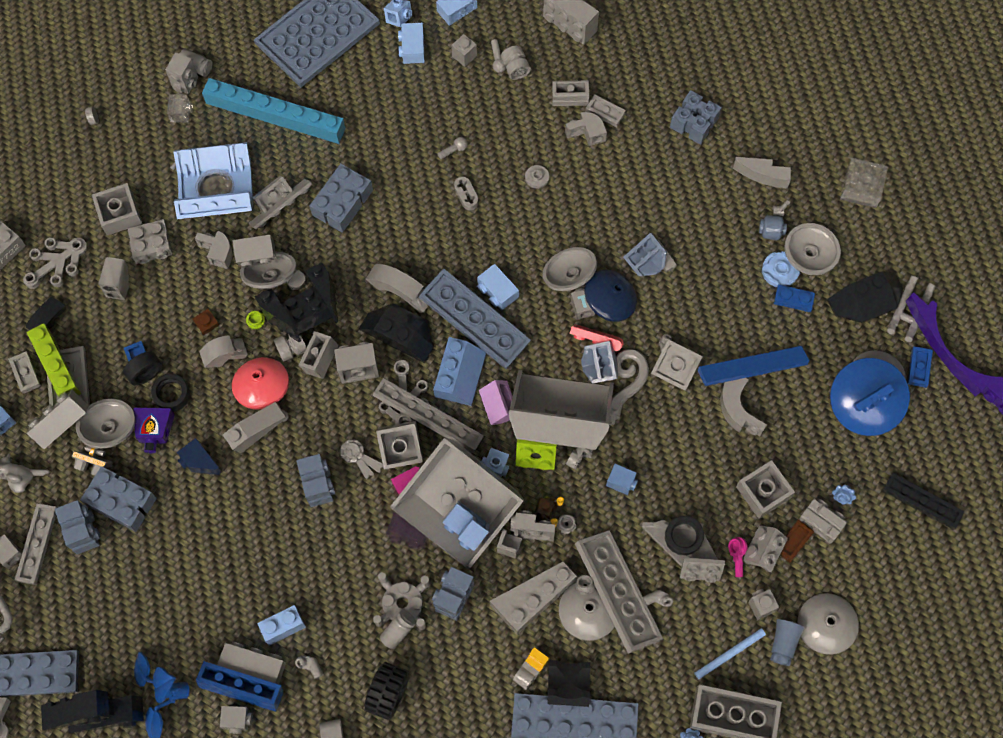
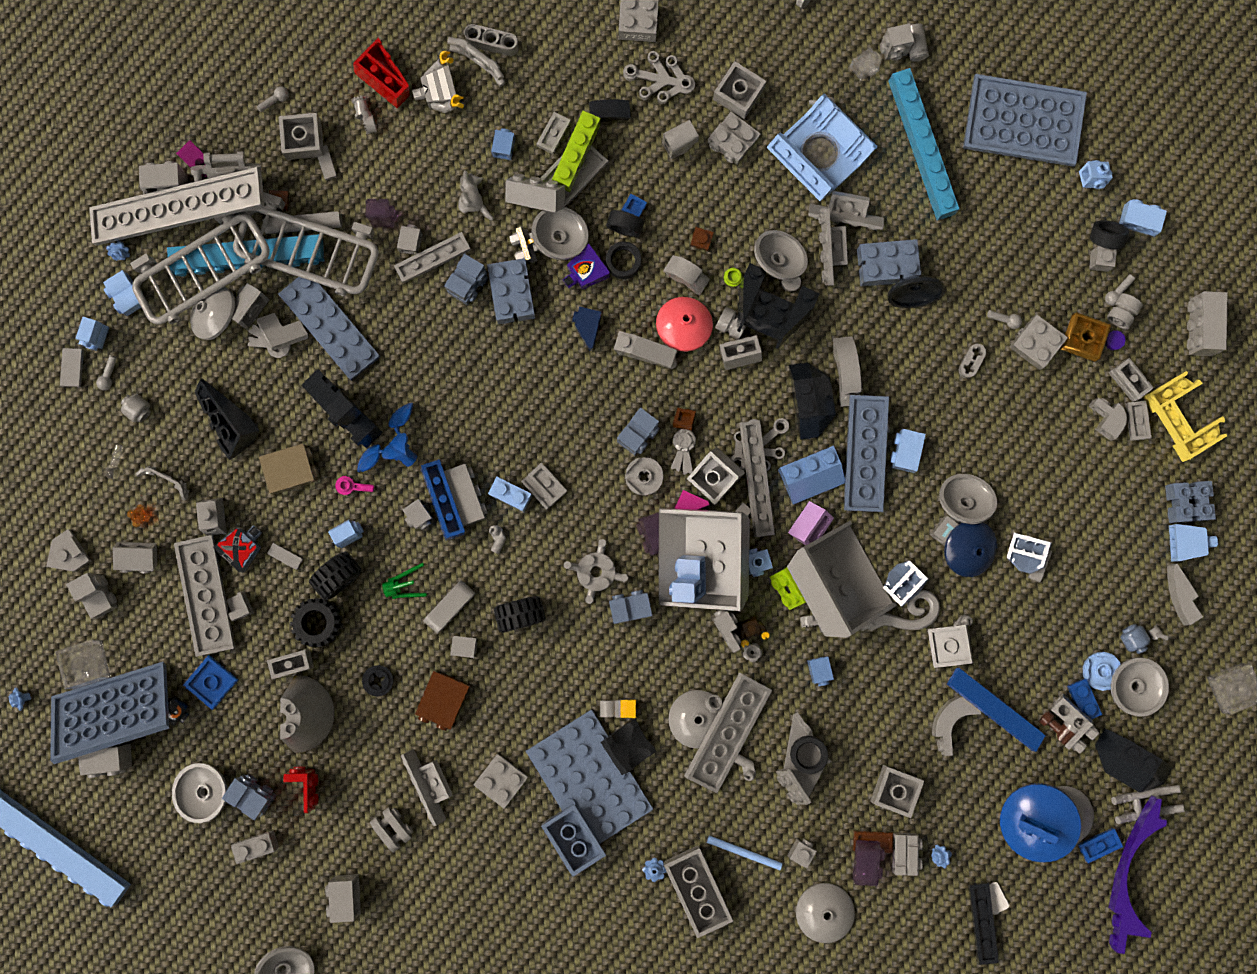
camera: 50 degrees right, 15 degrees up
(219, 248) = (770, 201): light grey brick -> none
(254, 249) = (788, 231): light grey slope -> none
(294, 227) = (834, 246): none -> light grey bracket
(298, 592) = (544, 486): none -> light grey plate
(335, 438) = (684, 419): none -> reddish brown plate
(346, 498) = (633, 478): none -> light grey plate
(356, 362) = (757, 388): light grey brick -> none
(379, 191) = (916, 291): none -> black dish
(397, 629) = (572, 585): light grey piece -> none
(412, 43) = (1076, 209): light blue brick -> none
(449, 32) = (1109, 234): none -> black tyre
(489, 136) = (1038, 342): none -> light grey brick
(508, 544) = (702, 620): light grey panel -> none
(514, 92) = (1096, 332): none -> pearl gold brick
(528, 600) = (671, 669): light grey wedge -> none
(532, 85) = (1115, 340): none -> dark purple tile
(537, 176) = (1032, 407): light grey piece -> none
(582, 332) = (926, 563): coral plate -> none
(650, 88) = (1163, 403): none -> light yellow wedge
(725, 139) = (1189, 542): none -> light blue torso
(737, 548) = (832, 801): dark pink plate -> none
(765, 548) = (849, 823): light grey bracket -> none
(785, 641) = (784, 890): sand blue plant -> none
(809, 556) = (867, 863): none -> clear purple brick
(810, 318) = (1075, 724): none -> light grey hips
(912, 476) = (998, 899): none -> white sticker

